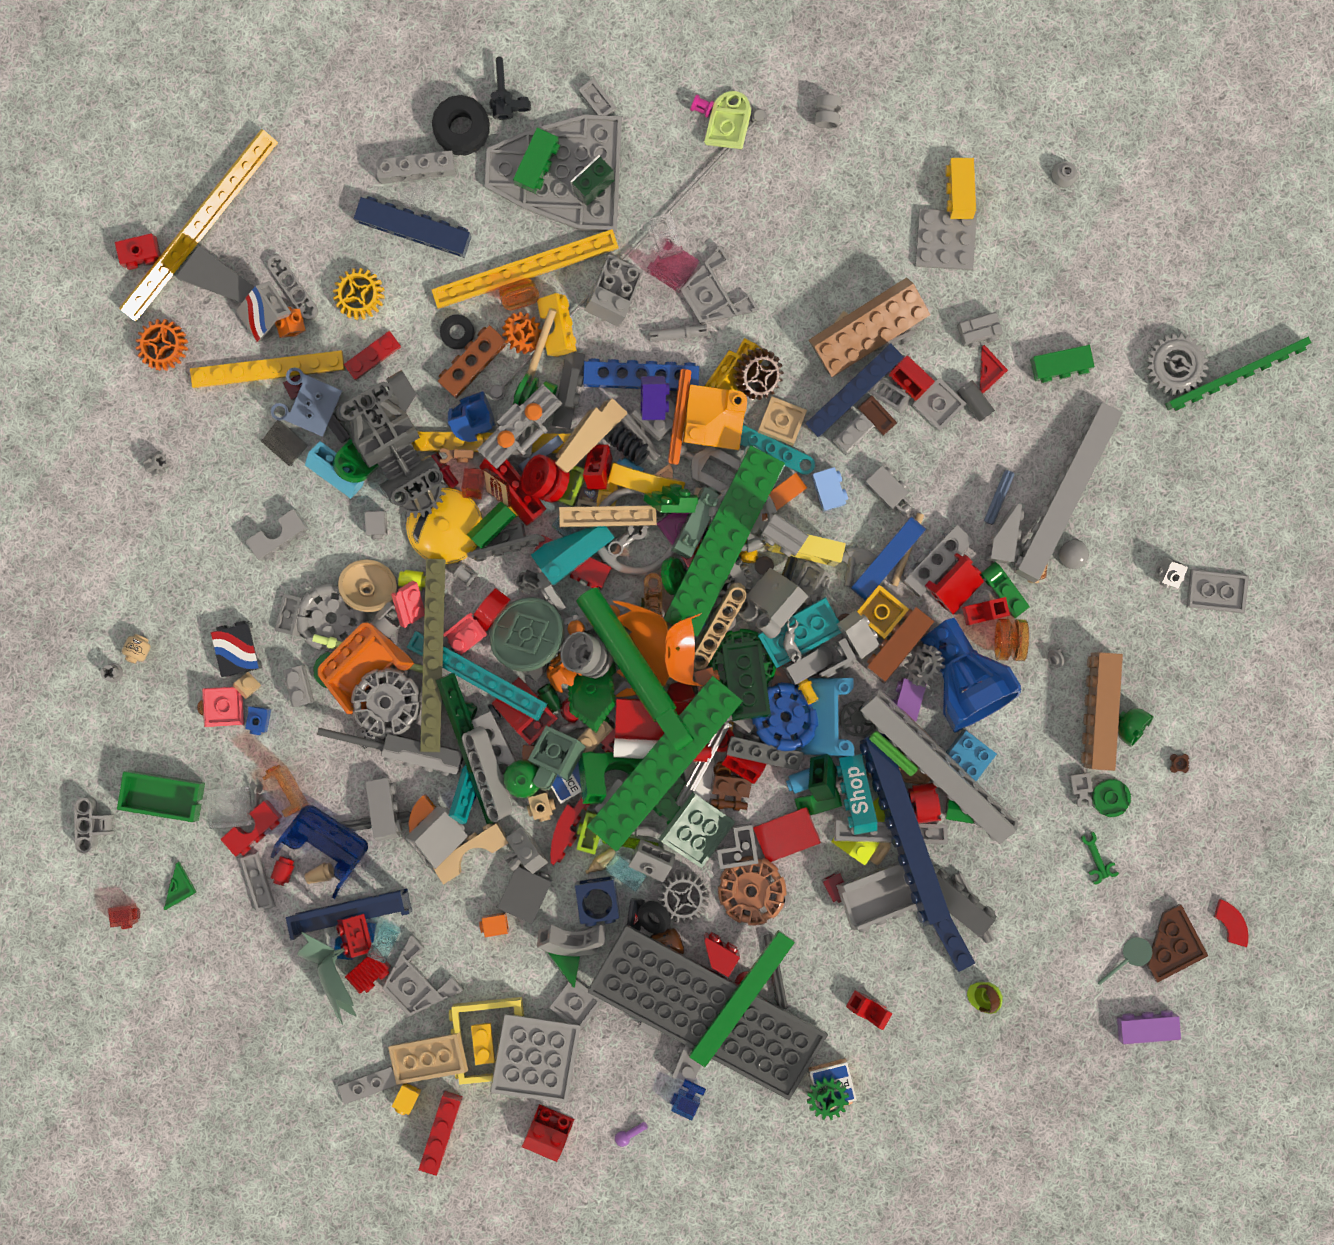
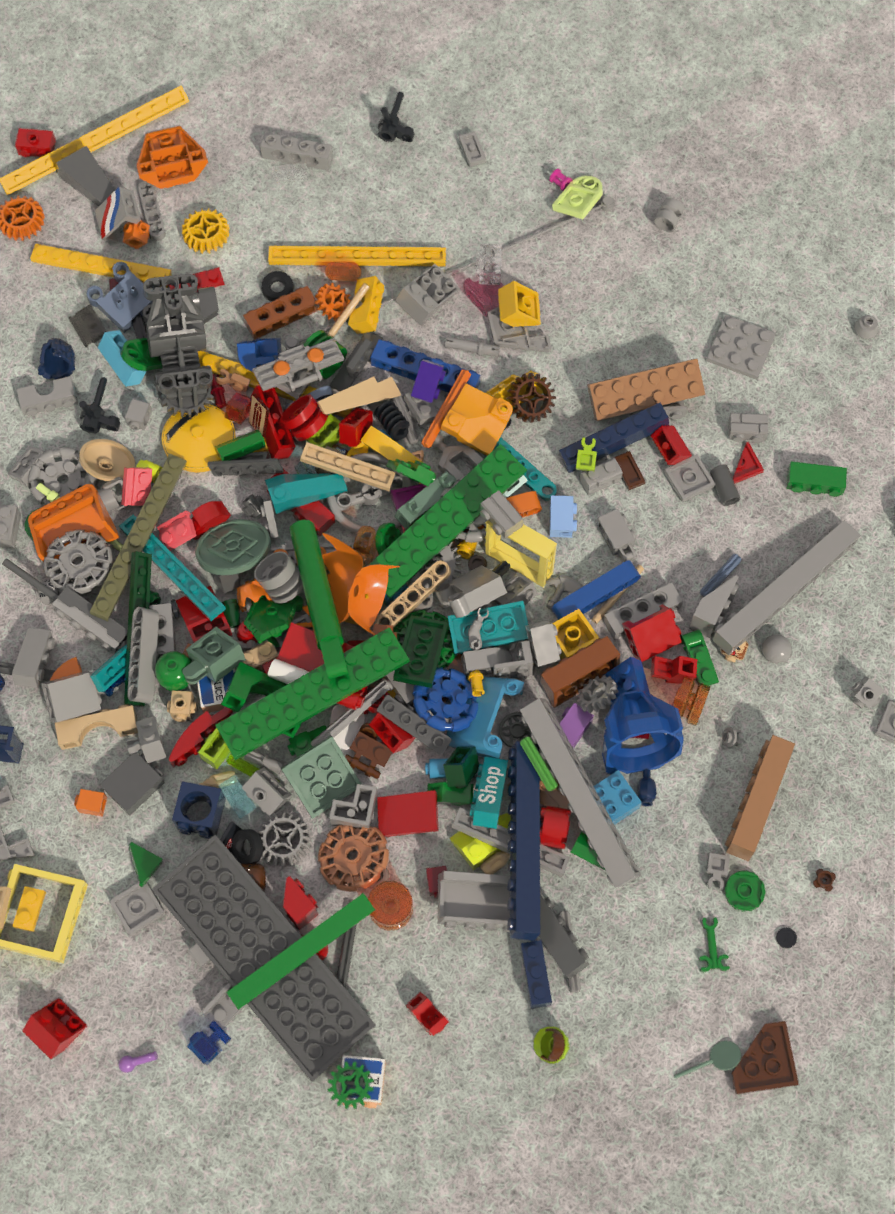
camera: 15 degrees right, 20 degrees down
(270, 494) = (56, 359): none -> dark blue hair
(286, 219) = (170, 158): none -> orange wedge
(333, 542) = (93, 416): none -> black piece
(412, 227) = (274, 195): dark blue brick -> none
(457, 107) = (344, 119): black tyre -> none
(465, 574) = (199, 482): light grey bush -> none
(535, 1058) = (73, 941): light grey plate -> none
(536, 161) = (400, 174): green brick -> none
(571, 943) = (155, 845): light grey arch -> none
(581, 142) = (420, 192): light grey piece -> none
(592, 180) = (442, 199): dark green piece -> none
(711, 275) = (519, 305): none -> yellow slope
(782, 421) = (539, 446): tan tile -> none
(807, 914) = (396, 916): none -> clear orange wheel
(837, 426) = (586, 458): none -> lime plate
(899, 408) = (653, 466): light grey slope -> none
(961, 188) = (767, 307): yellow brick -> none
(995, 734) = (646, 789): none -> dark blue plant
(1133, 724) = (787, 823): green cylinder -> none
(1149, 1027) = (713, 1139): medium lavender brick -> none
(1160, 827) = (786, 938): none -> black piece
(1234, 923) = (836, 1061): red tile -> none

